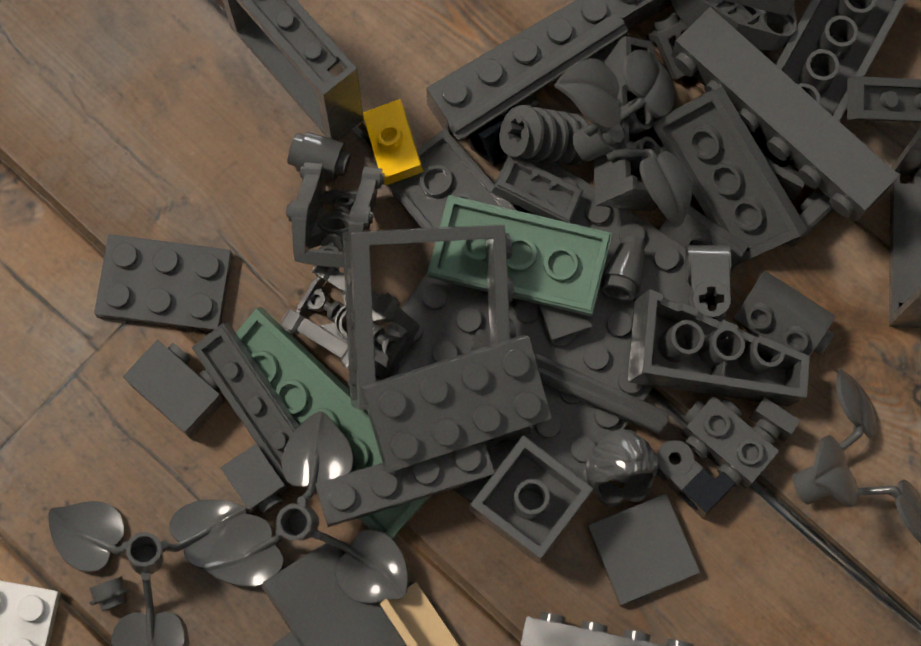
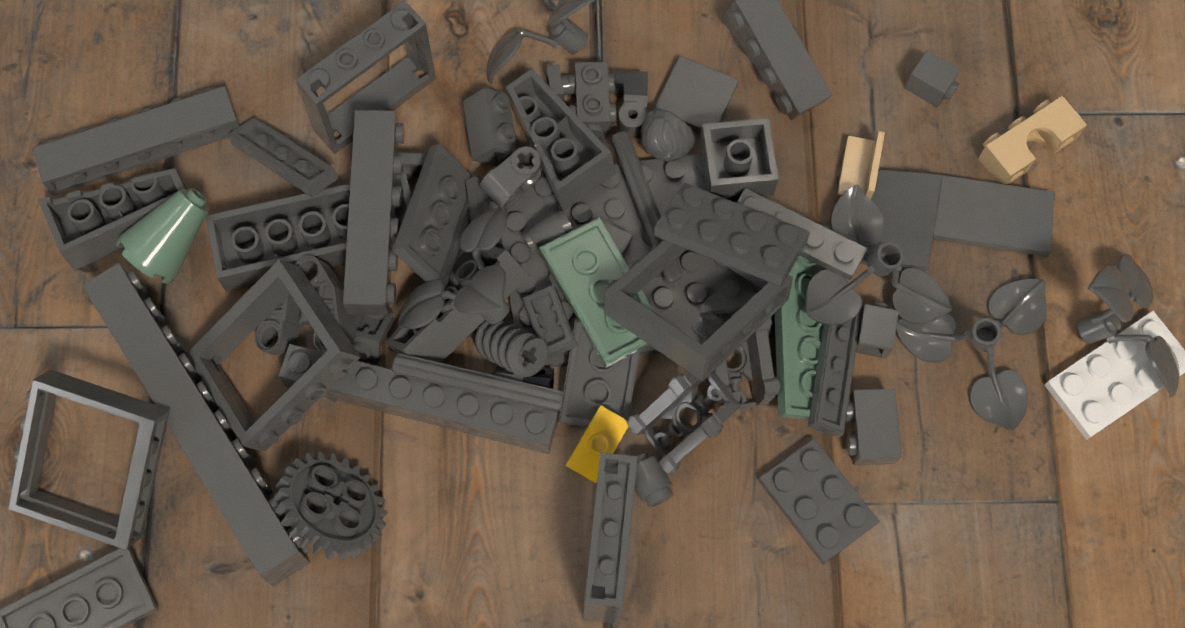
camera: 135 degrees left, 5 degrees down
(109, 593) = (1018, 352): dark grey plate -> none

